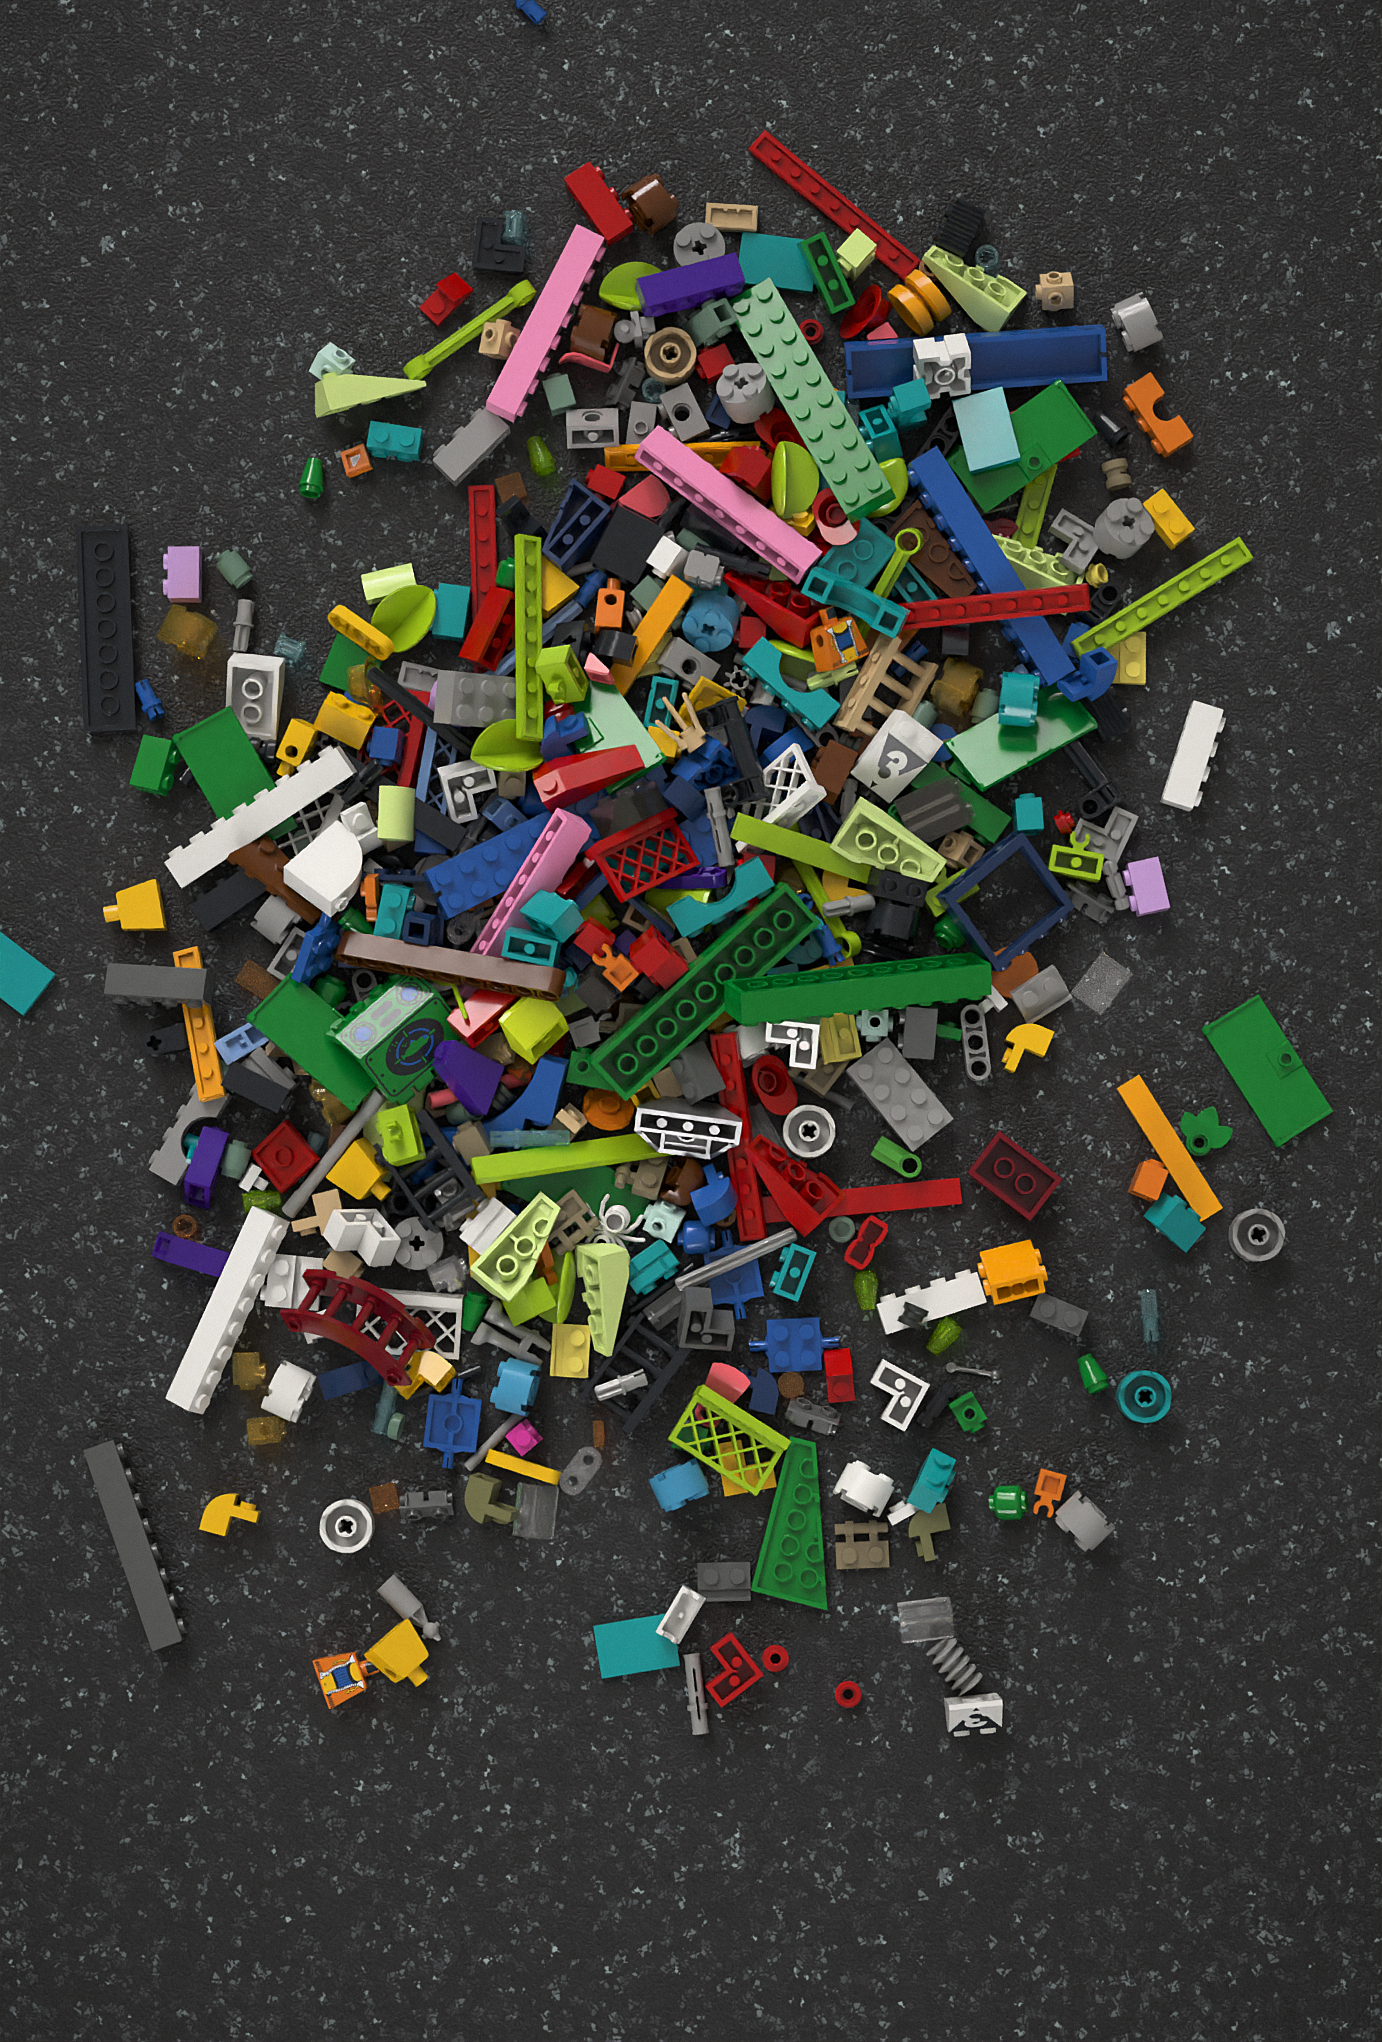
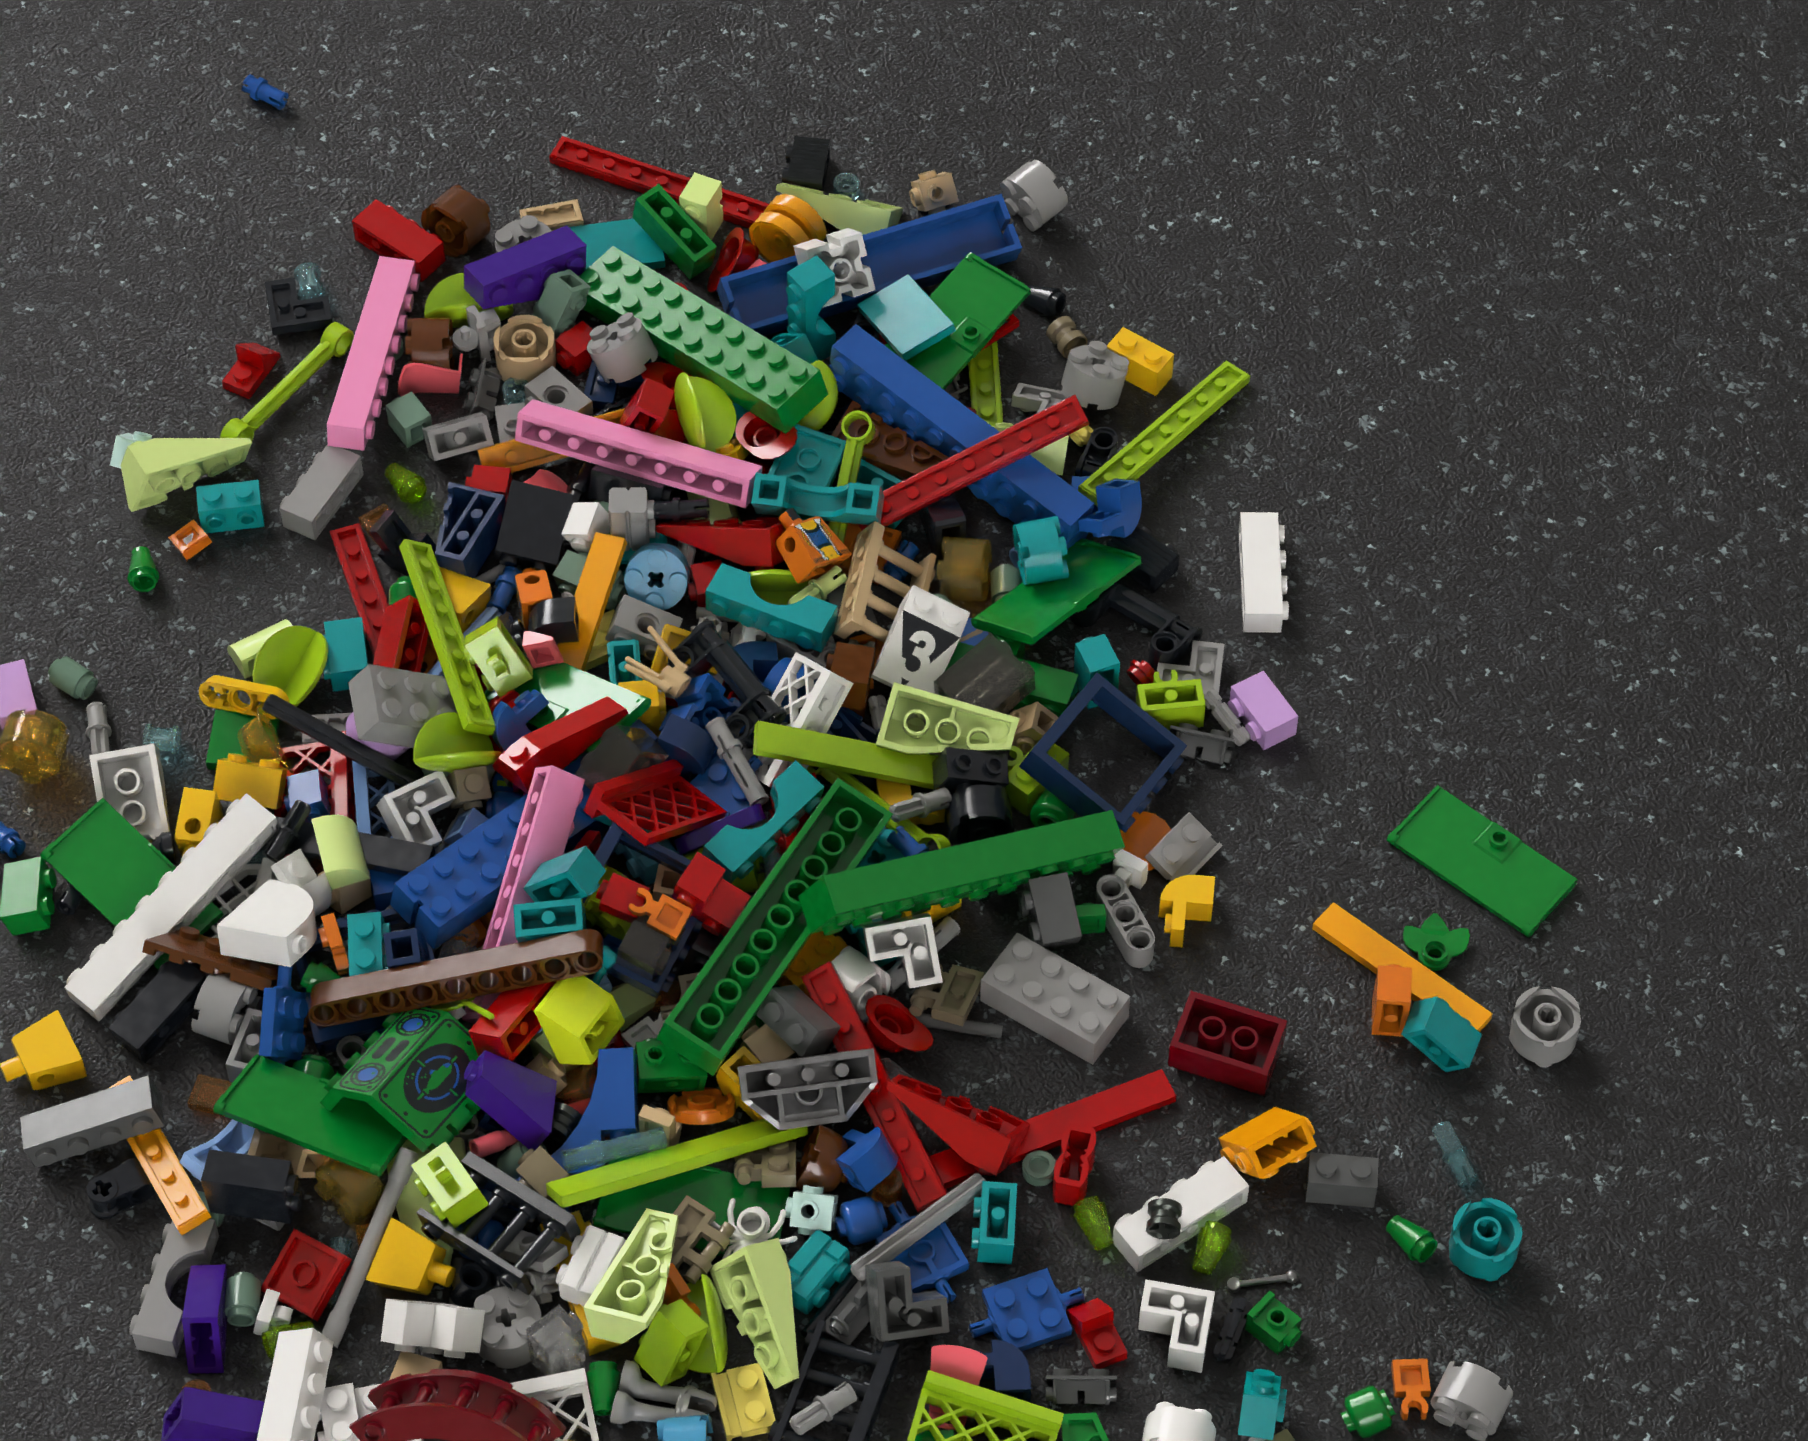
camera: 20 degrees left, 30 degrees down
(190, 1143) = (177, 1296): teal hand -> none
(324, 1205) = (367, 1340): tan brick -> none
(498, 339) = (321, 383): tan brick -> none
(790, 1384) = (1041, 1359): clear orange tile -> none
(812, 1117) = (959, 1062): white brick -> none
(839, 1039) = (960, 950): light yellow plate -> none
(874, 1034) = (994, 929): light aqua brick -> none
(894, 1156) = (1077, 1068): bright green piece -> none
(1101, 983) = (1250, 821): clear plate -> none
(1131, 660) = (1157, 506): light yellow plate -> none
(1165, 435) = (1106, 289): orange arch -> none

